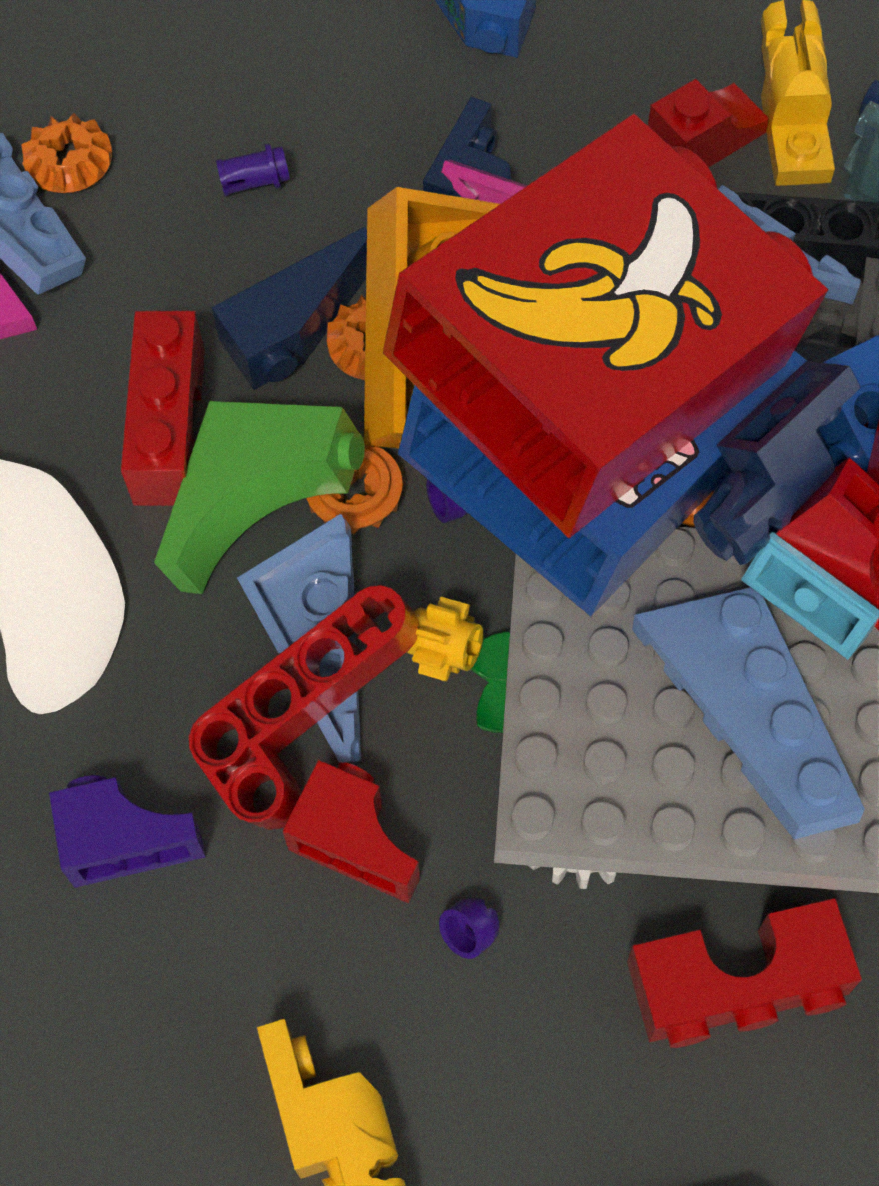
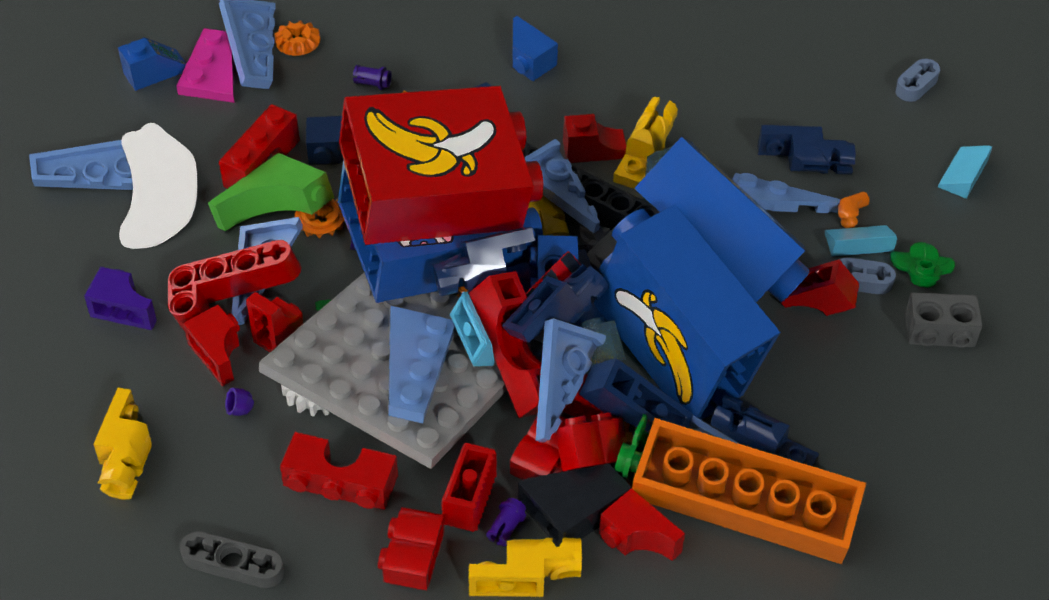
camera: 25 degrees right, 15 degrees down
(436, 741) = (272, 320): none -> red arch
(446, 639) = (310, 288): yellow gear -> none

